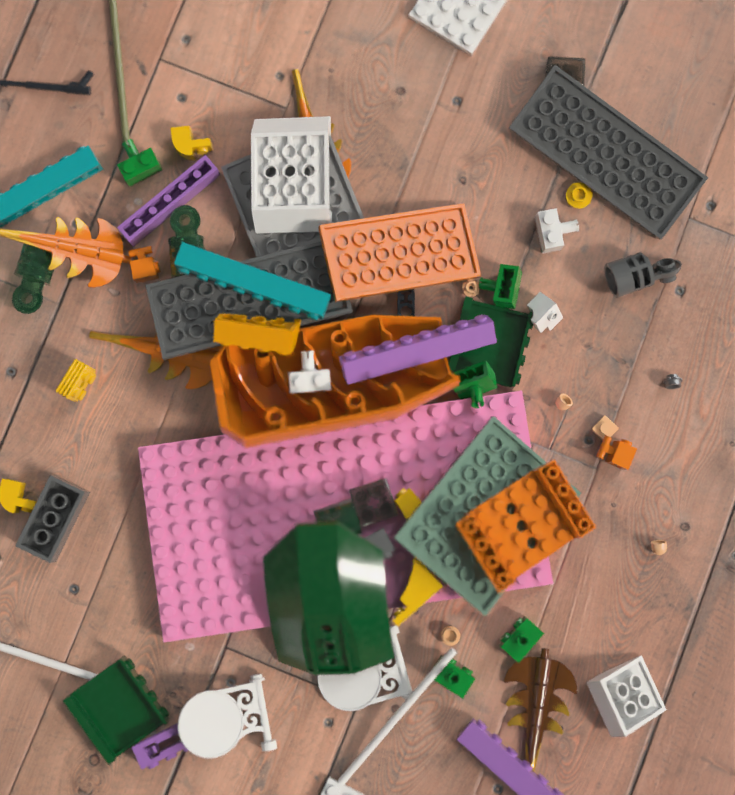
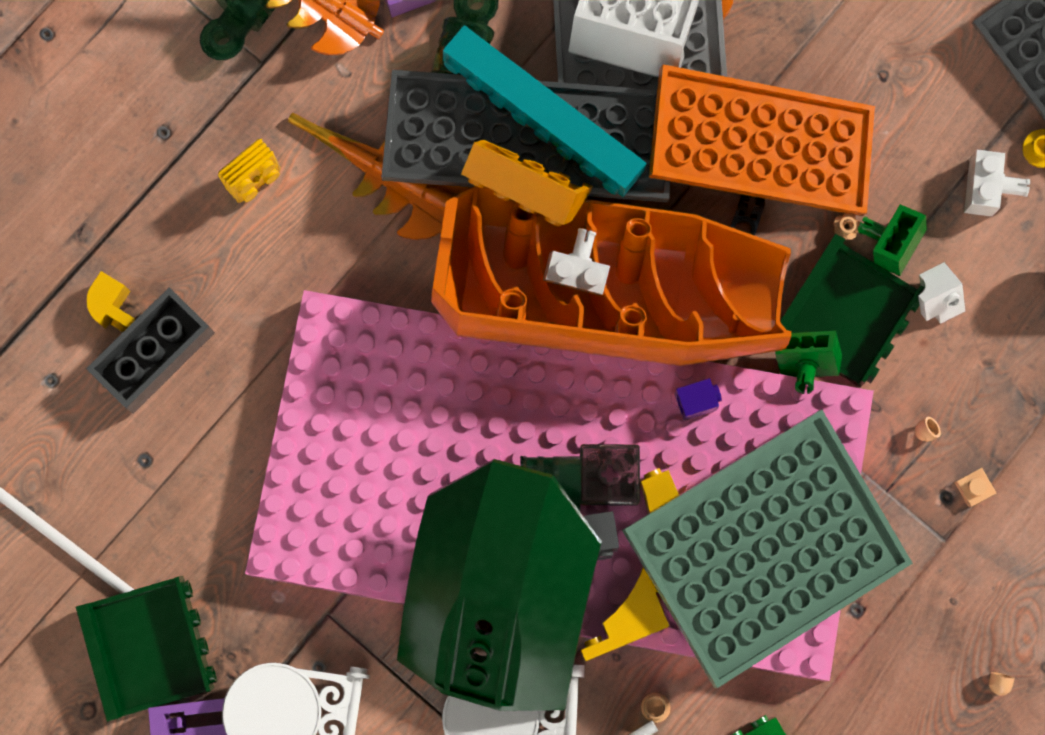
camera: 20 degrees right, 5 degrees down
(144, 268) = (396, 49): orange brick -> none
(413, 434) = (698, 399): none -> dark purple brick
(417, 349) = (744, 281): medium lavender brick -> none
(550, 516) = (856, 566): orange slope -> none
(619, 454) = (985, 529): orange brick -> none

